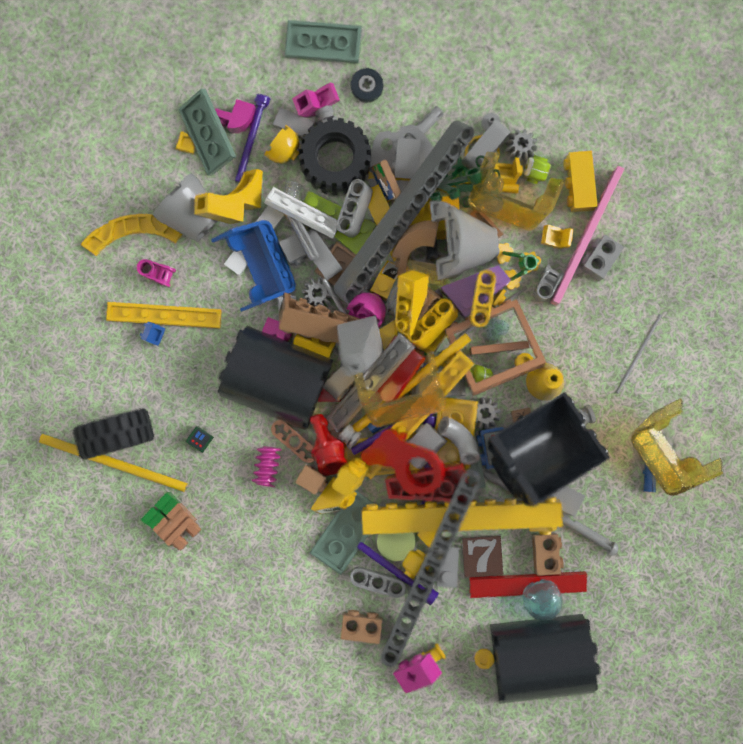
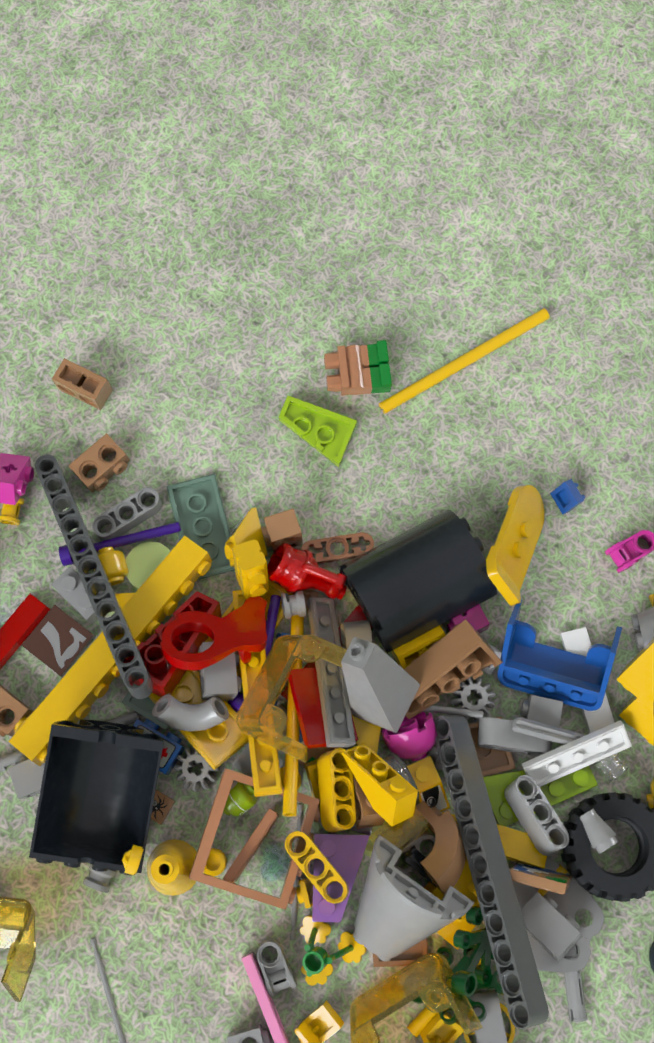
camera: 135 degrees right, 10 degrees down
(113, 433) = (491, 375): black tyre -> none
(164, 315) = (579, 523): yellow tile -> none
(199, 439) = (419, 458): slope -> none
(207, 338) = (516, 542): none -> yellow piece
(228, 514) = (319, 427): none -> lime wing
(266, 466) = (335, 500): dark pink piece -> none
(322, 683) = (82, 384): none -> medium nougat brick
(337, 166) = (598, 832): none -> light grey cone
(563, 400) = (132, 859): none -> yellow tile

